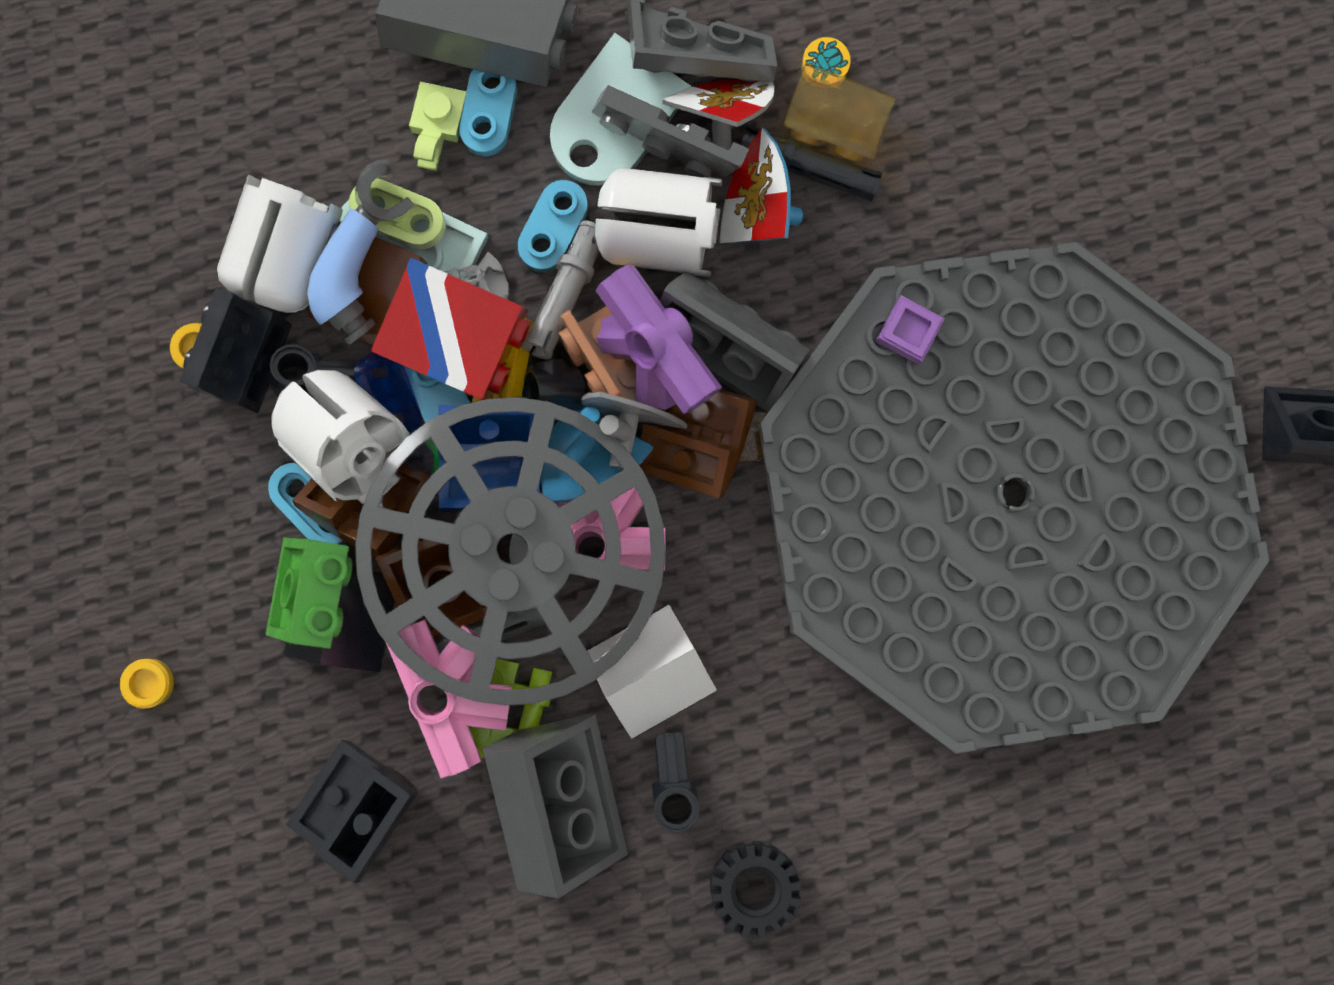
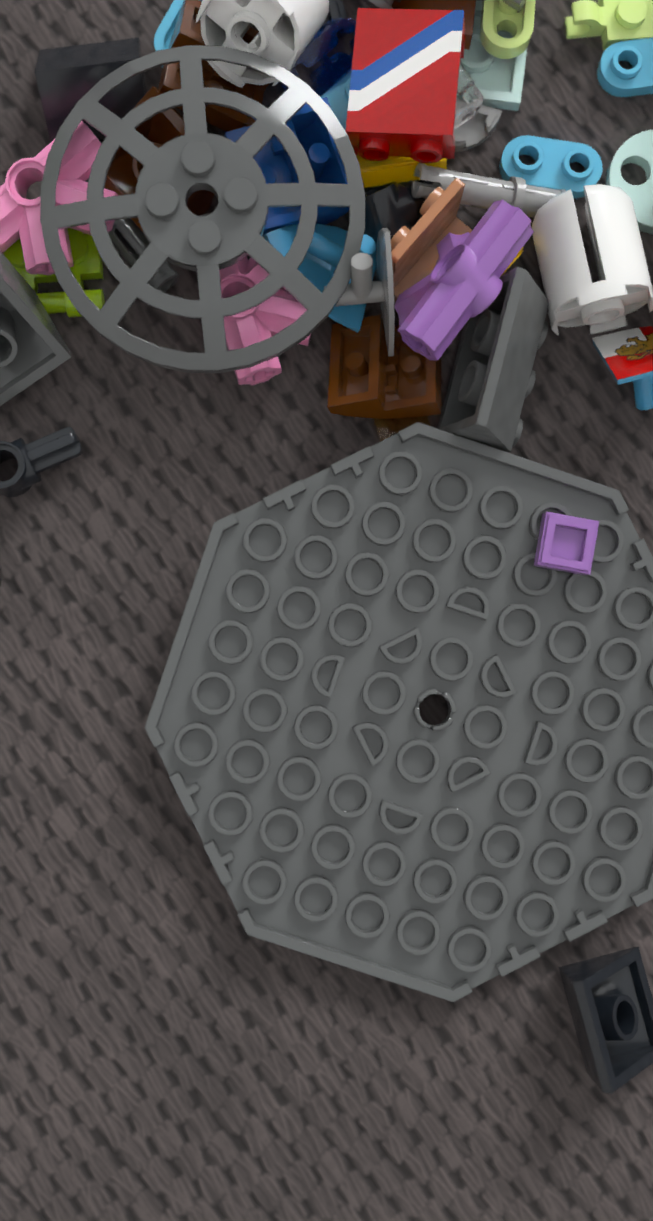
camera: 70 degrees right, 0 degrees up
(308, 592) = (98, 33): bright green plate -> none
(655, 675) = (132, 406): white slope -> none

